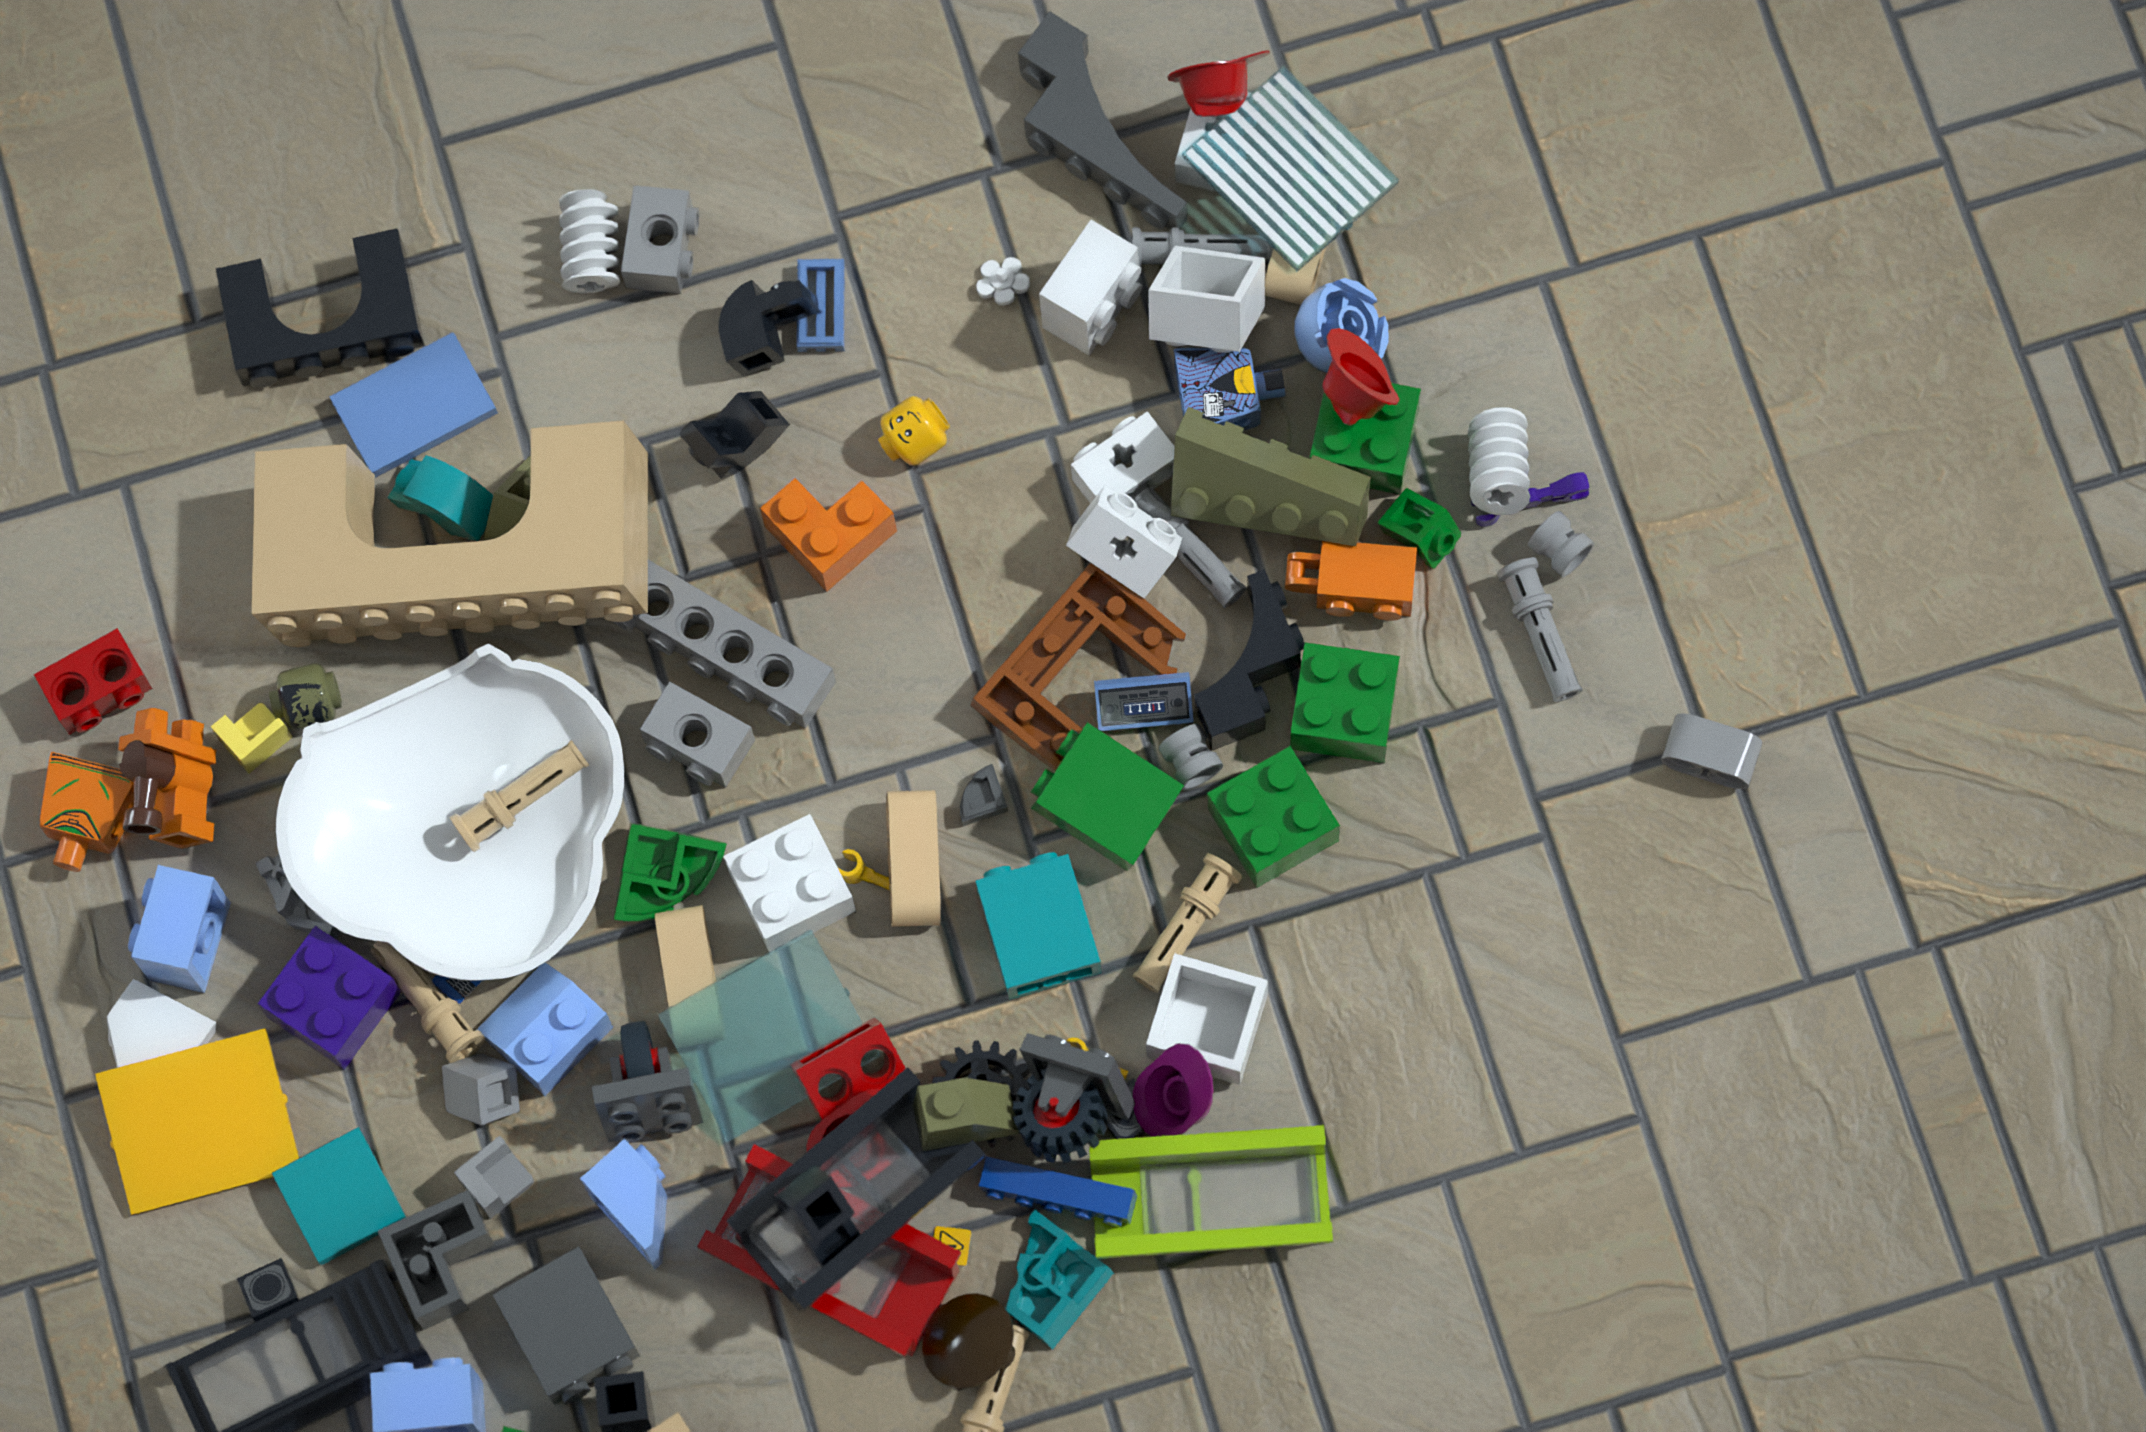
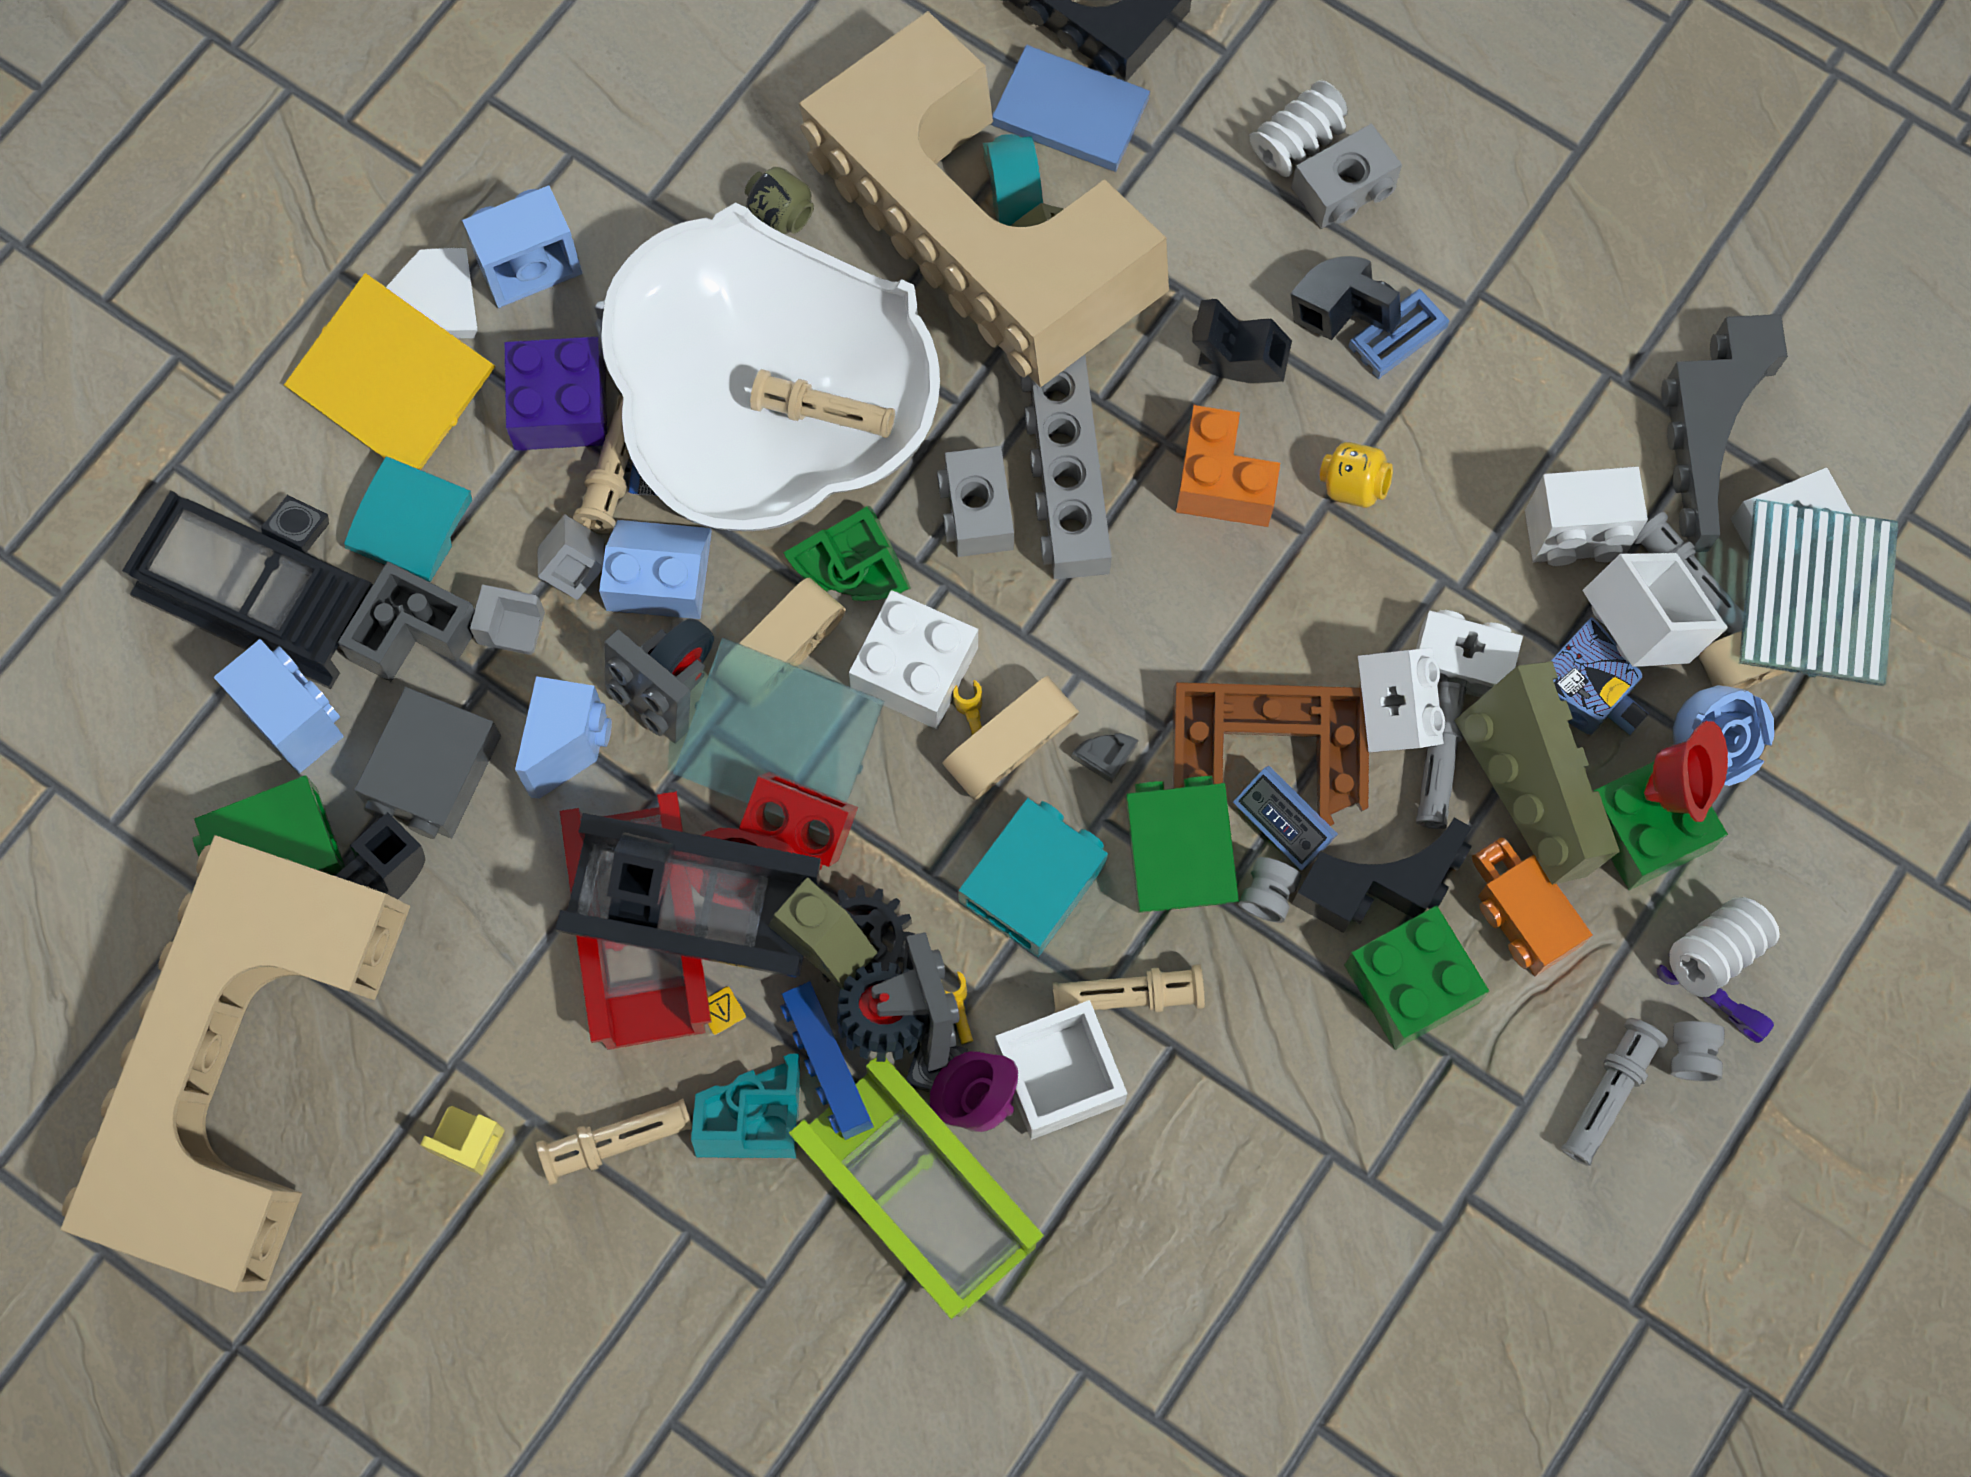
camera: 45 degrees right, 0 degrees up
(83, 808) = (571, 116): orange torso -> none
(88, 671) = (676, 41): red brick -> none
(169, 779) = (645, 151): orange hips -> none
(252, 736) = (714, 189): light yellow panel -> none
(968, 1341) = (646, 1084): dark brown dish -> none
(1002, 281) = (1535, 451): white plant -> none
(1215, 86) = (1836, 479): red piece -> none
(1273, 816) = (1274, 994): green piece -> none
(1421, 525) = (1616, 926): green bracket -> none
(1711, 751) = (1628, 1316): light grey beam -> none

